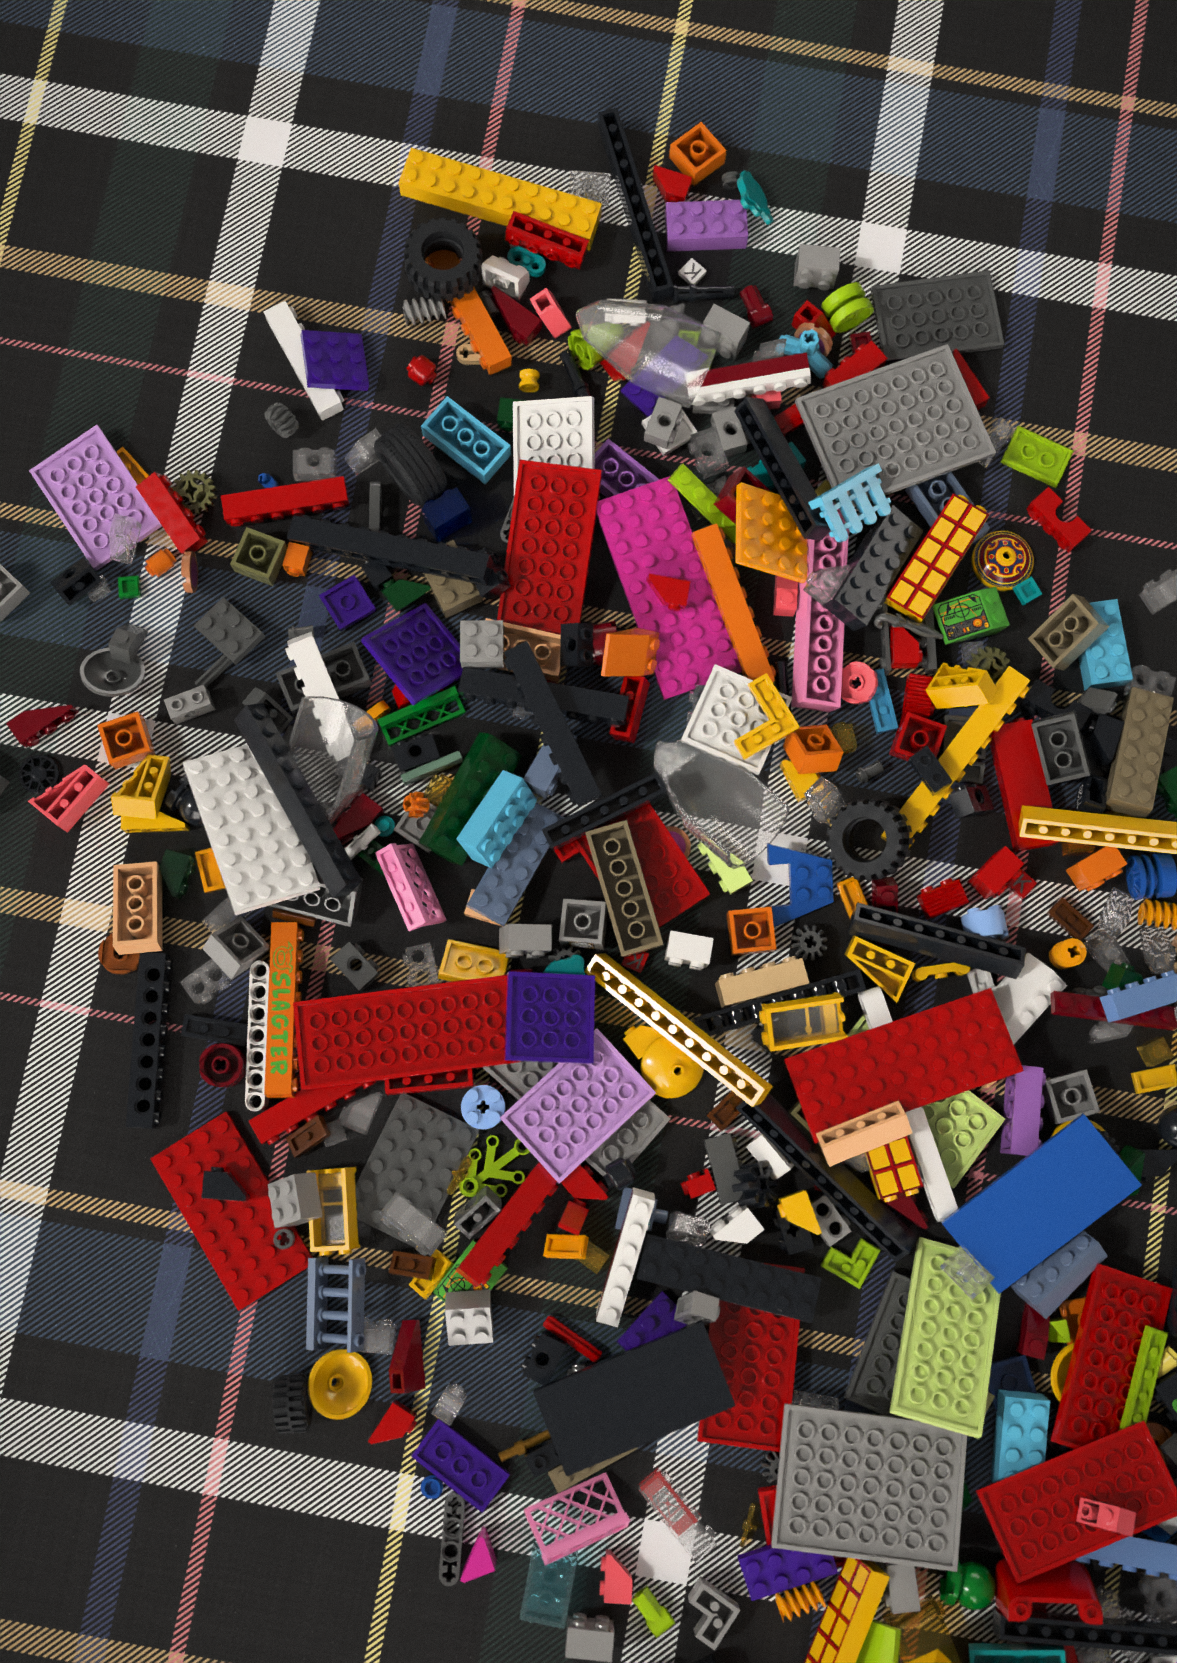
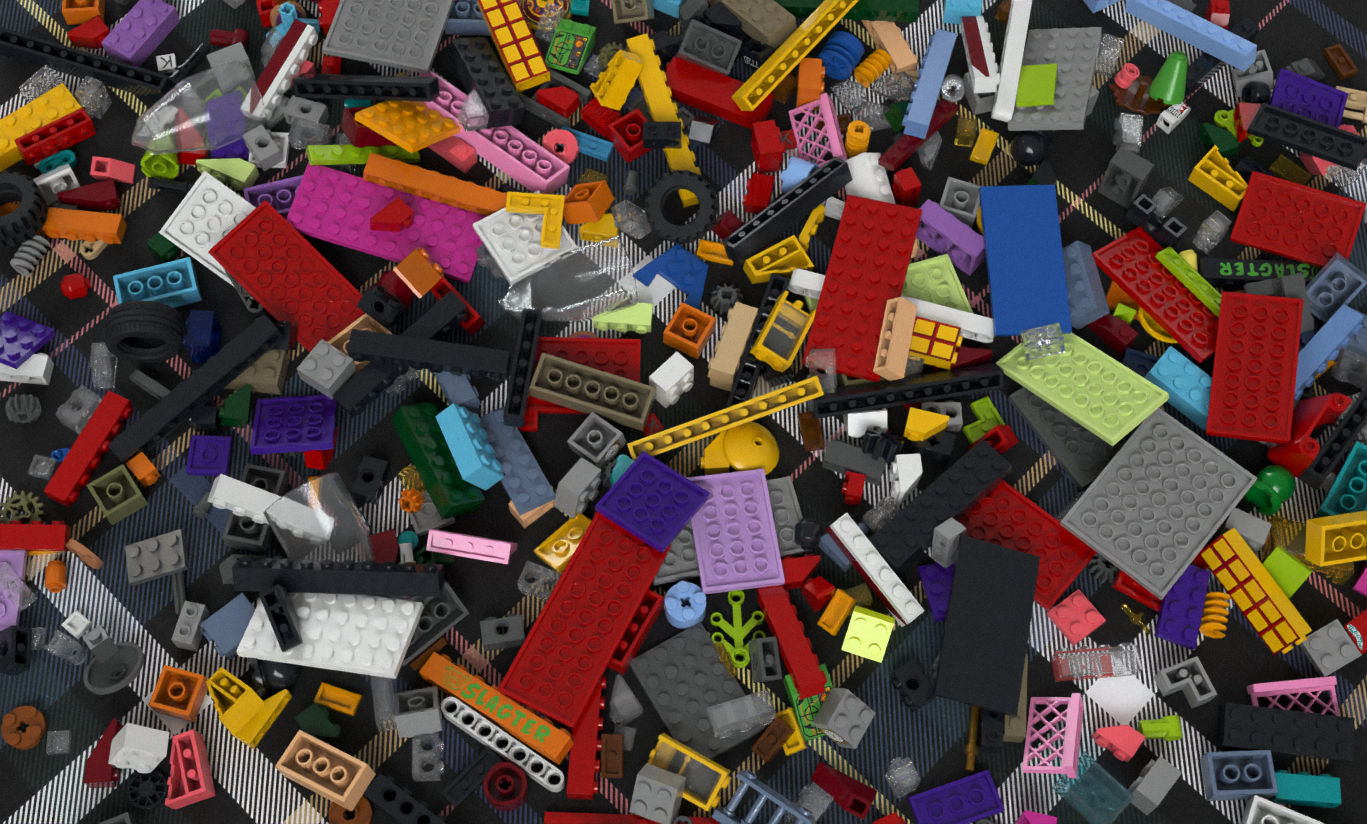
camera: 55 degrees left, 15 degrees down
(20, 627) = (14, 720): none -> dark orange plate
(29, 675) = (58, 742): none -> clear plate
(57, 745) = (138, 748): none -> white brick
(106, 615) = (63, 646): none -> clear piece
(129, 587) = (54, 615): green tile -> none
(134, 611) = (77, 624): none -> white tile
(209, 736) = (228, 626): none -> sand blue brick
(230, 780) = (282, 616): none -> black slope
(244, 475) = (42, 467): none -> clear plate
(423, 707) = (340, 444): green fence -> none
(431, 768) = (390, 476): sand green tile -> none
(529, 380) = (150, 218): yellow wheel -> none
(562, 1289) = (868, 634): none -> neon yellow brick
(572, 1338) = (916, 654): red axle -> none
(606, 240) = (93, 97): none -> clear brick
(625, 414) = (230, 171): none -> yellowish green slope
(711, 1468) = (1076, 617): none -> coral plate
(787, 1084) = (826, 360): none -> clear brick
(835, 1287) = (1000, 438): none -> red slope
(844, 503) = (431, 56): medium azure fence -> none
(899, 621) = (538, 87): dark grey piece -> none
(982, 578) = (549, 21): none -> clear brick
(1046, 1034) = (906, 187): none -> red brick
(1063, 919) = (831, 126): none -> bright pink fence
(1106, 1517) = (1276, 350): coral slope -> none

